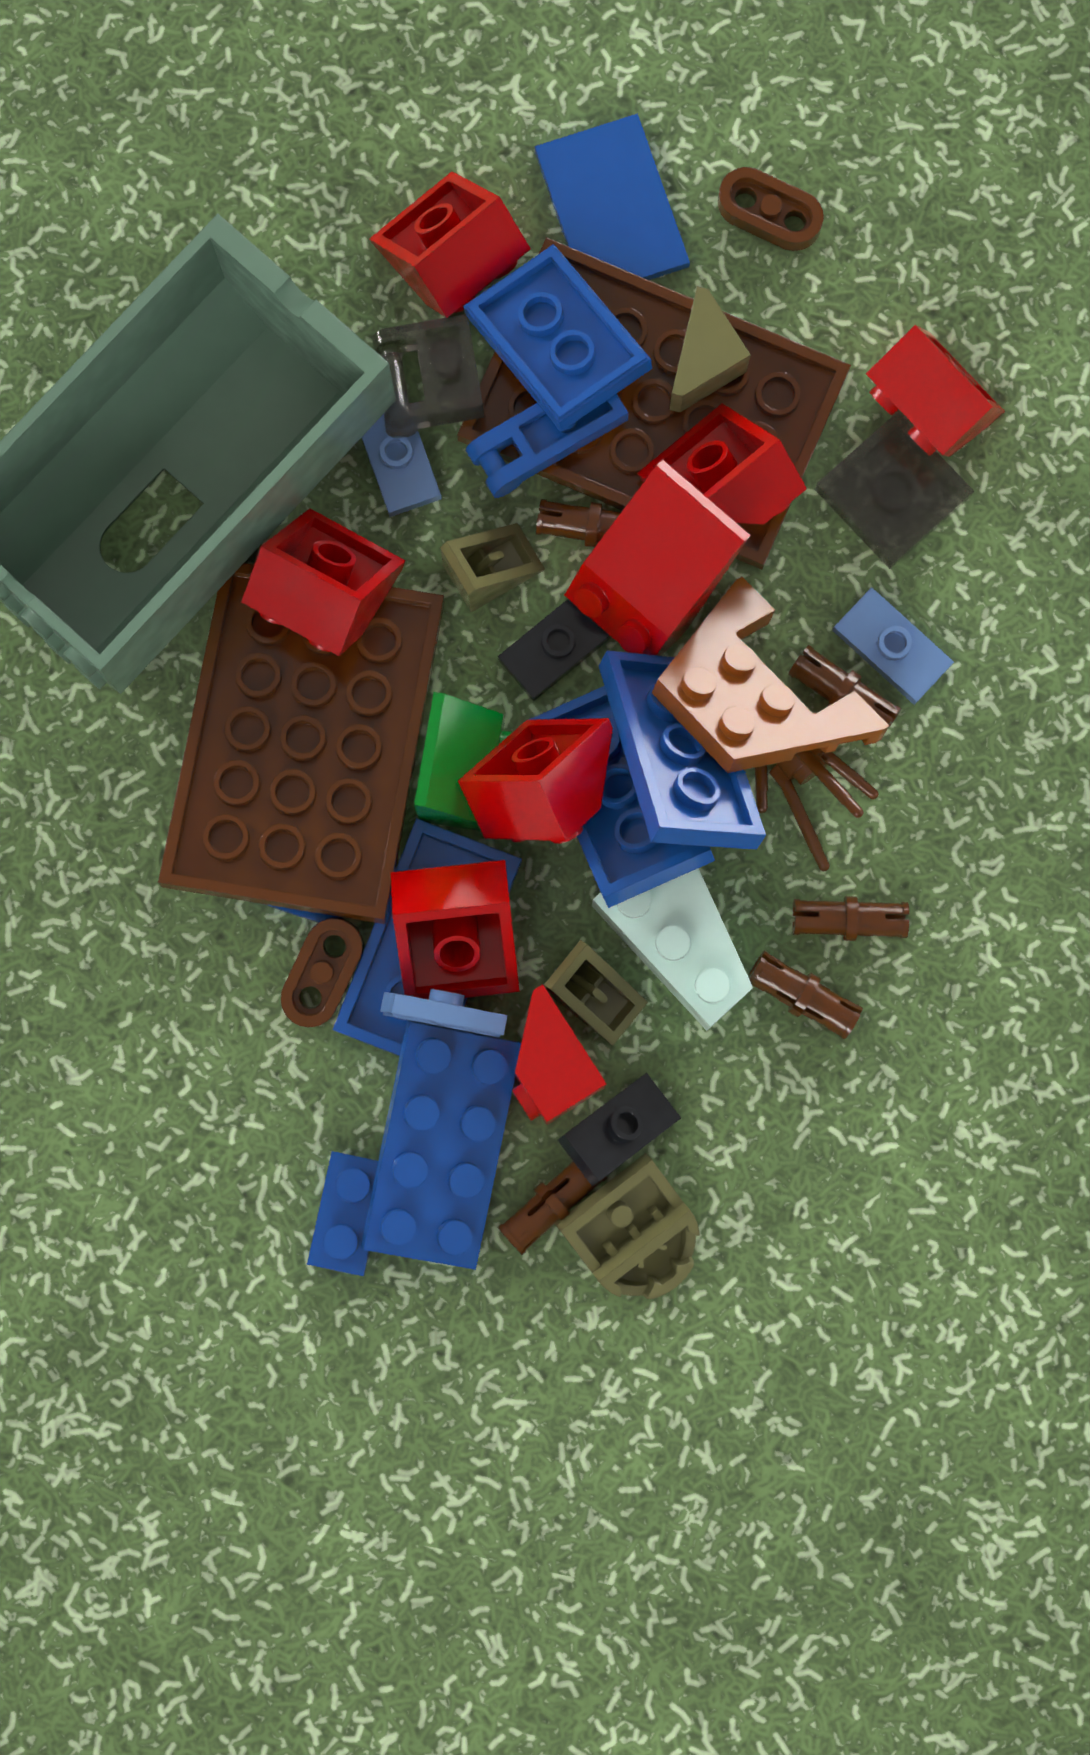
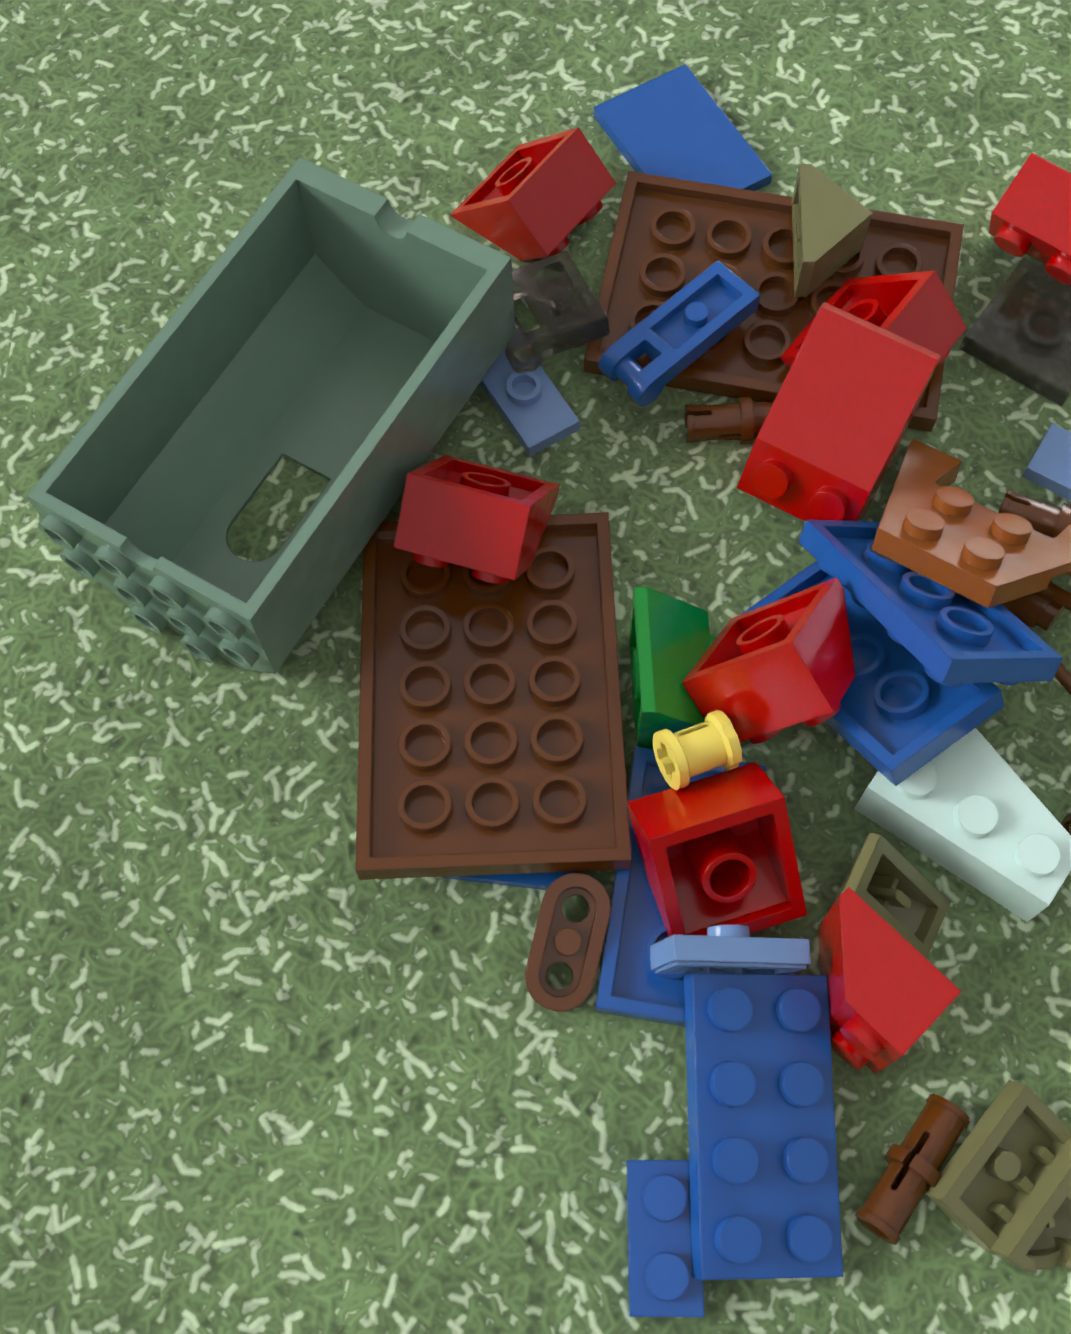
camera: 10 degrees left, 15 degrees down
(456, 842) = (697, 749): none -> light yellow bush
(489, 563) = (643, 477): olive slope -> none
(552, 649) = (737, 546): black plate -> none
(558, 337) = (669, 244): blue tile -> none
(619, 1129) = (969, 1058): black plate -> none
(773, 205) = (836, 116): reddish brown plate -> none

